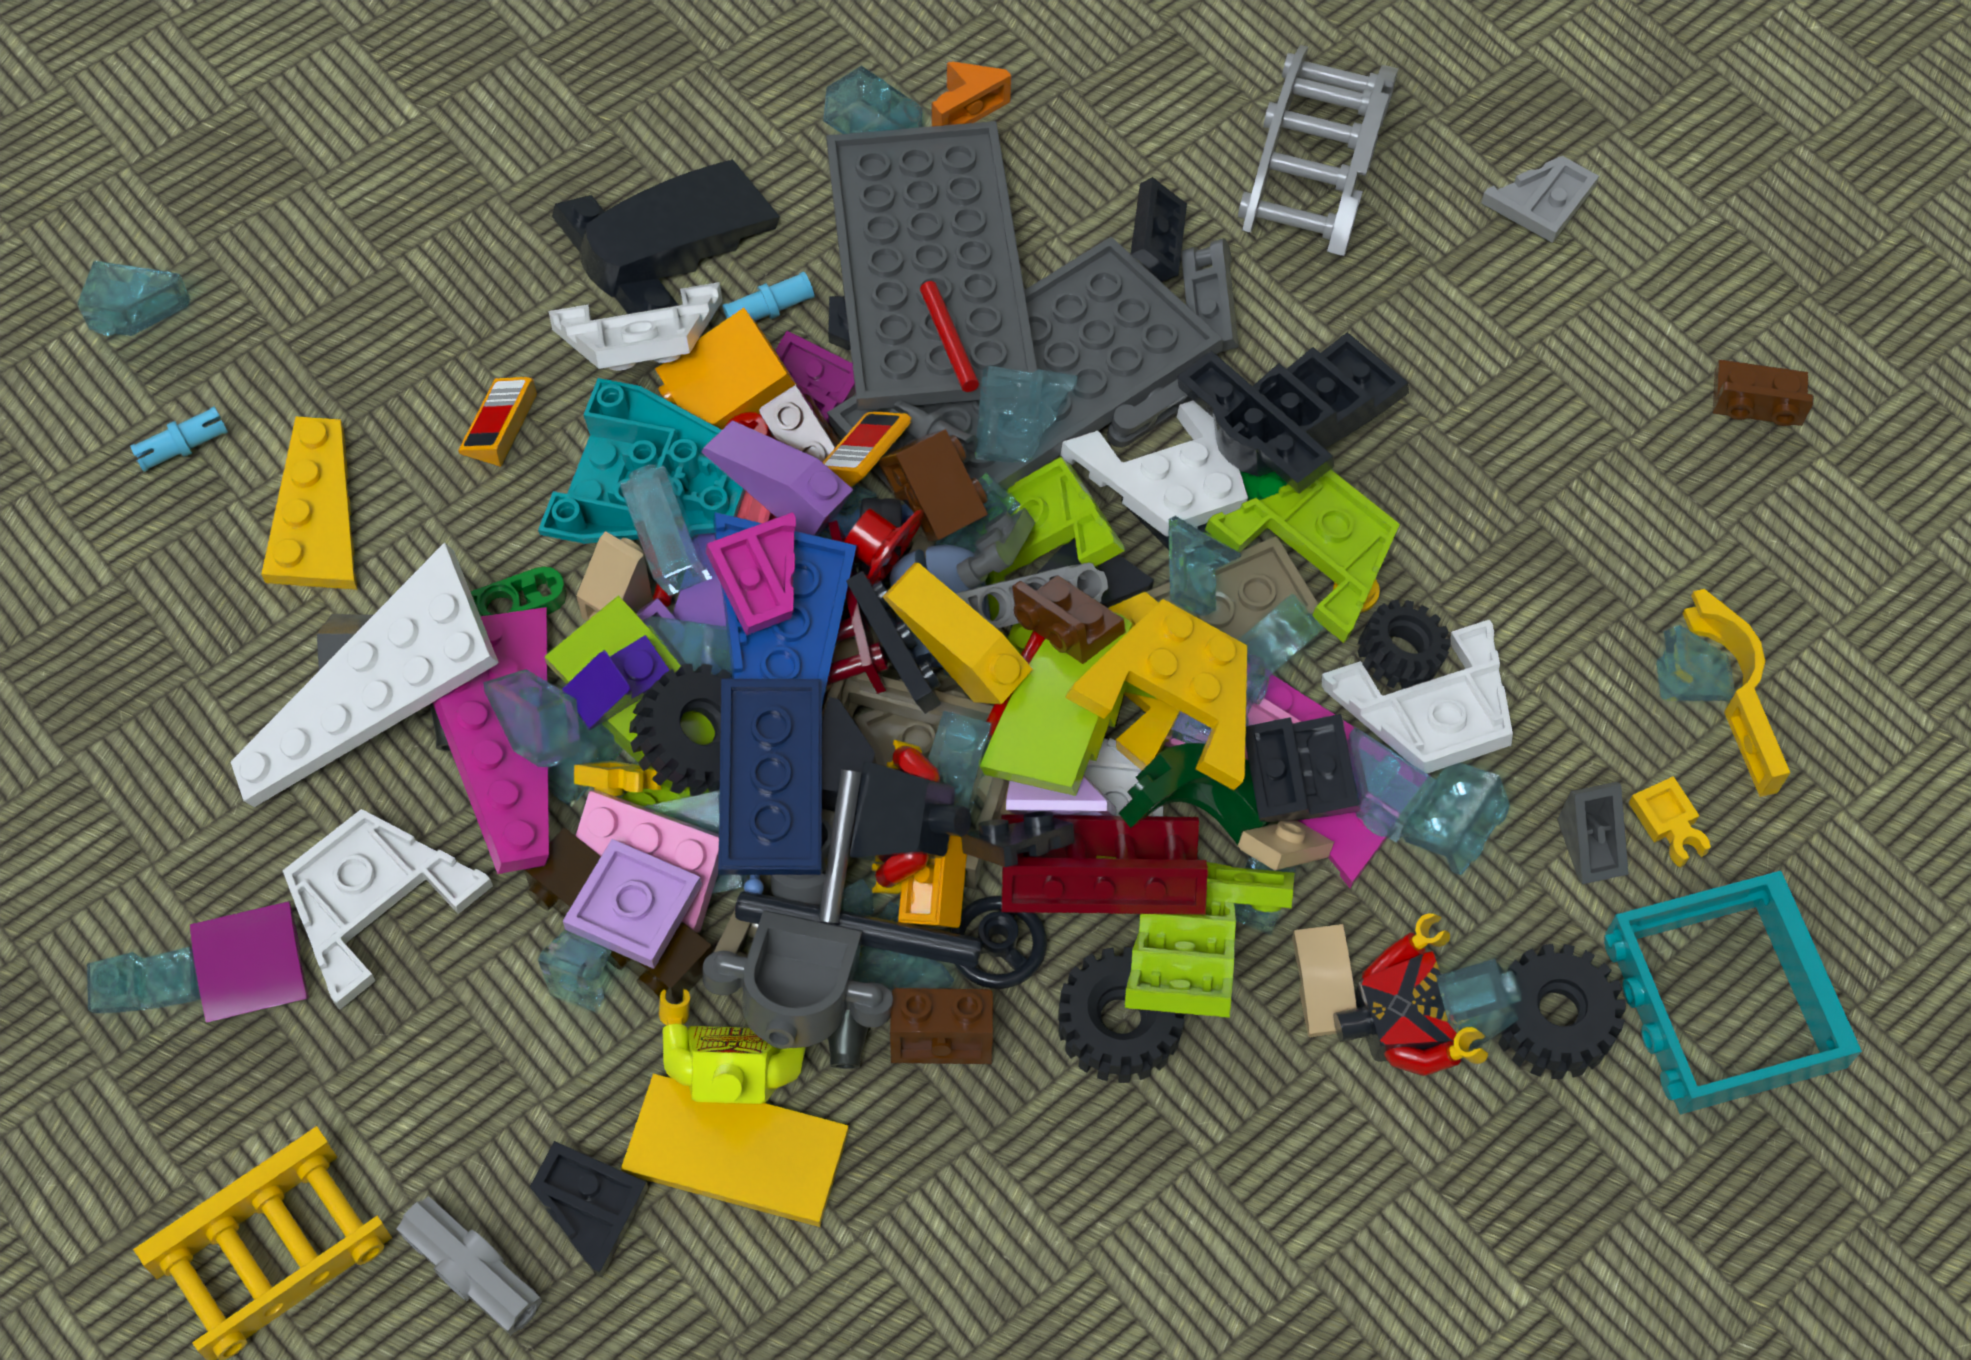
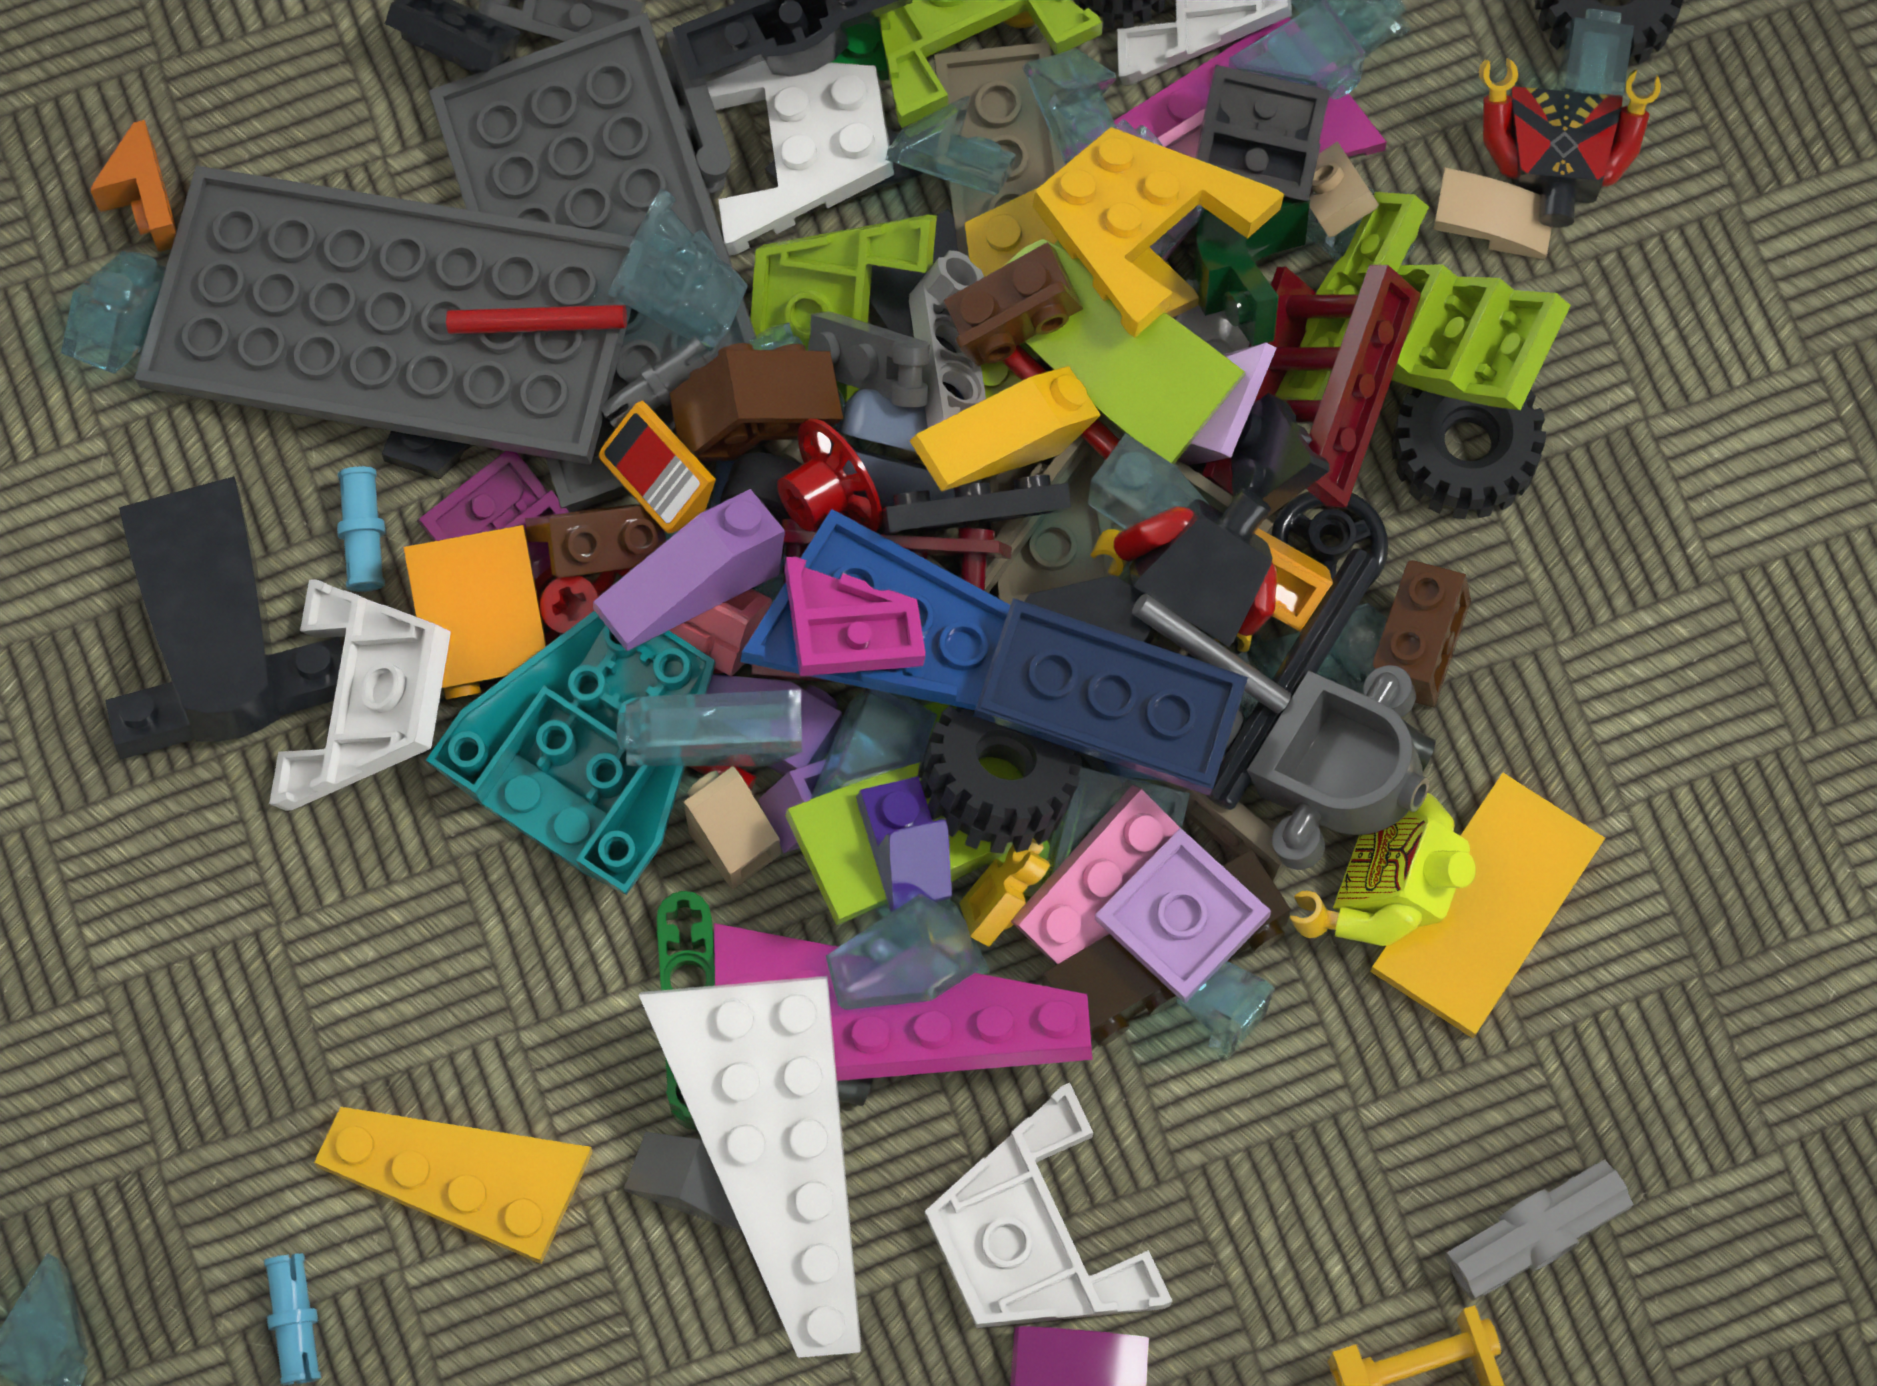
camera: 70 degrees left, 10 degrees up
(499, 419) = (410, 911): slope -> none
(588, 1202) = (1504, 1081): black wing -> none

